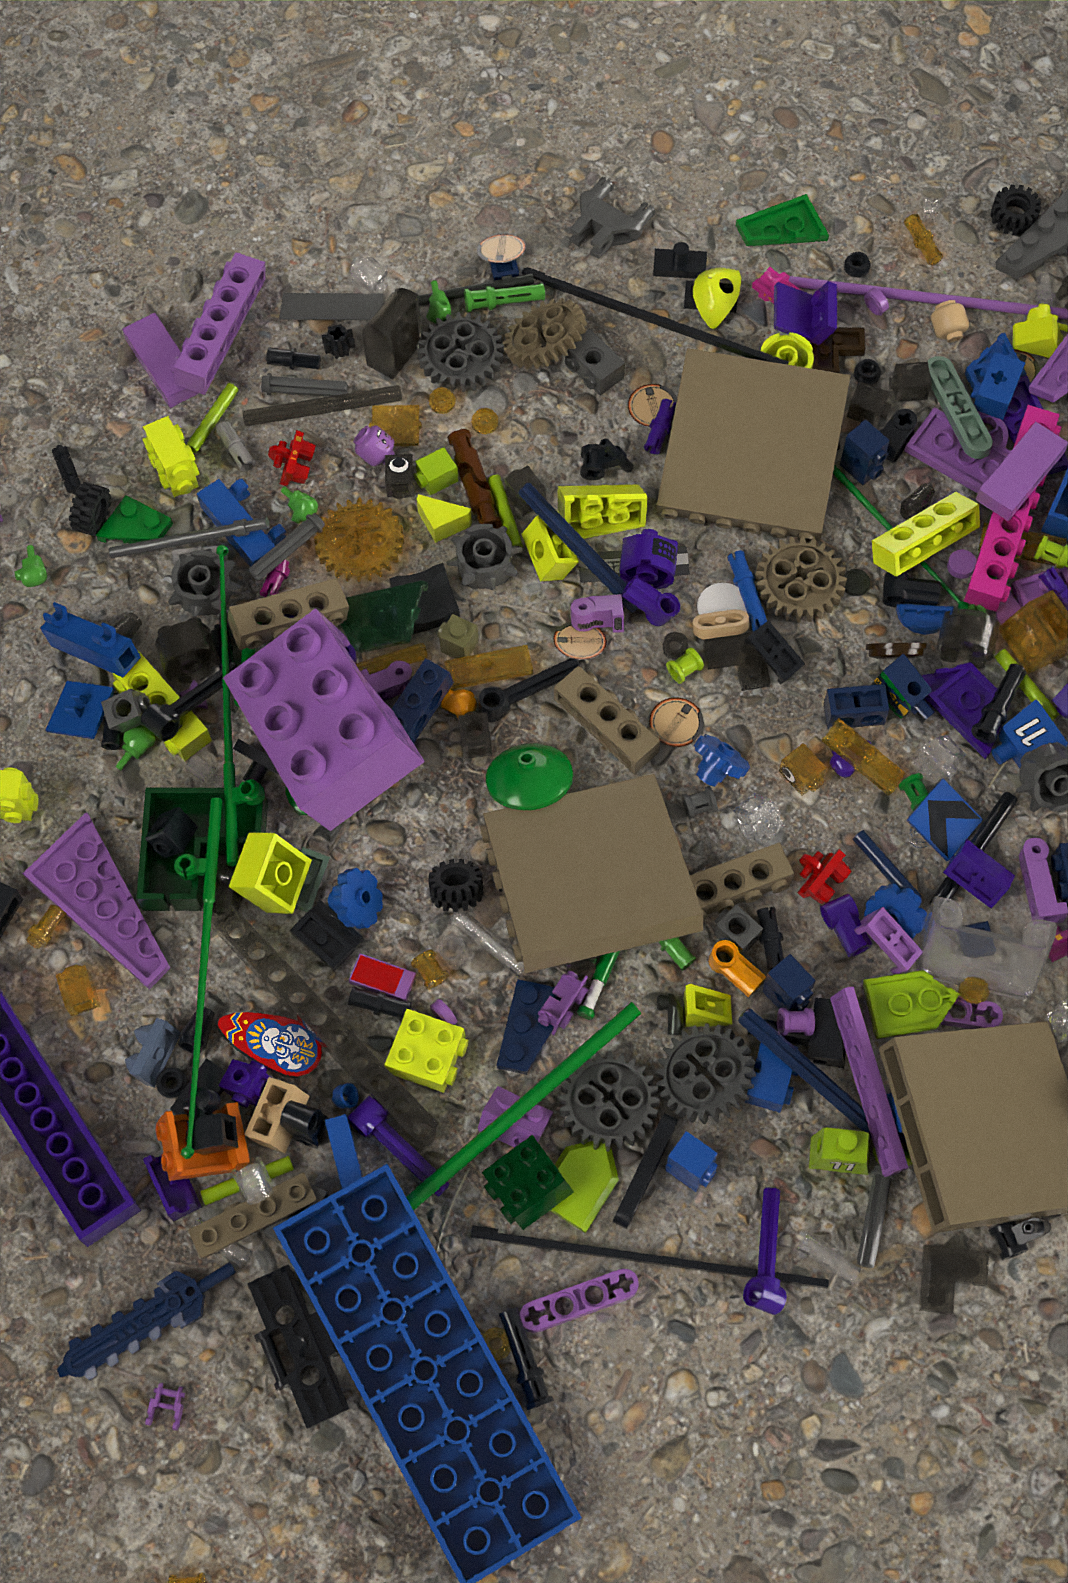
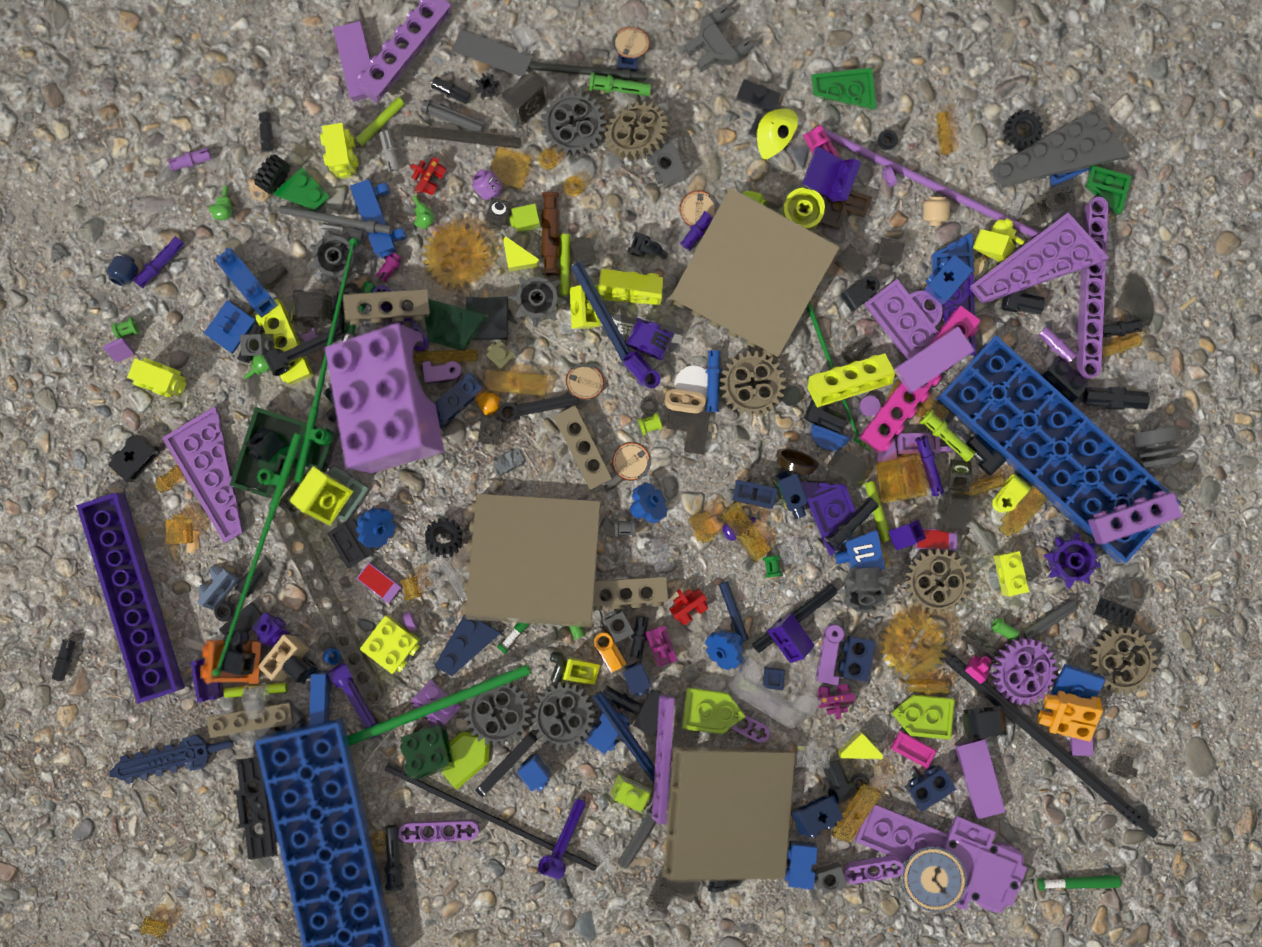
camera: 15 degrees right, 20 degrees up
(155, 1404) = (176, 817): medium lavender piece -> none
(273, 1041) = (292, 607): shield -> none
(287, 546) = (401, 249): dark grey axle -> none
(378, 1003) = (371, 600): black pin -> none
(439, 304) = (569, 79): bright green piece -> none
(529, 776) = (520, 484): green dish -> none
(558, 1012) = (495, 633): medium lavender hinge -> none
(598, 613) = (603, 365): medium lavender leg -> none
(652, 318) = (652, 74): black piece -> none
(775, 651) = (712, 437): black hinge -> none
(795, 1021) = (632, 703): medium lavender bush -> none
(807, 937) = (661, 646): none -> magenta hips
(843, 917) = (691, 638): dark purple piece -> none
(864, 452) = (832, 303): dark blue brick -> none
(867, 366) = (865, 228): black plate -> none
(890, 939) = (713, 668): medium lavender hinge -> none
(944, 819) = (783, 593): blue piece -> none
(967, 426) = (913, 305): sand green piece -> none
(974, 990) = (759, 713): clear yellow plate -> none

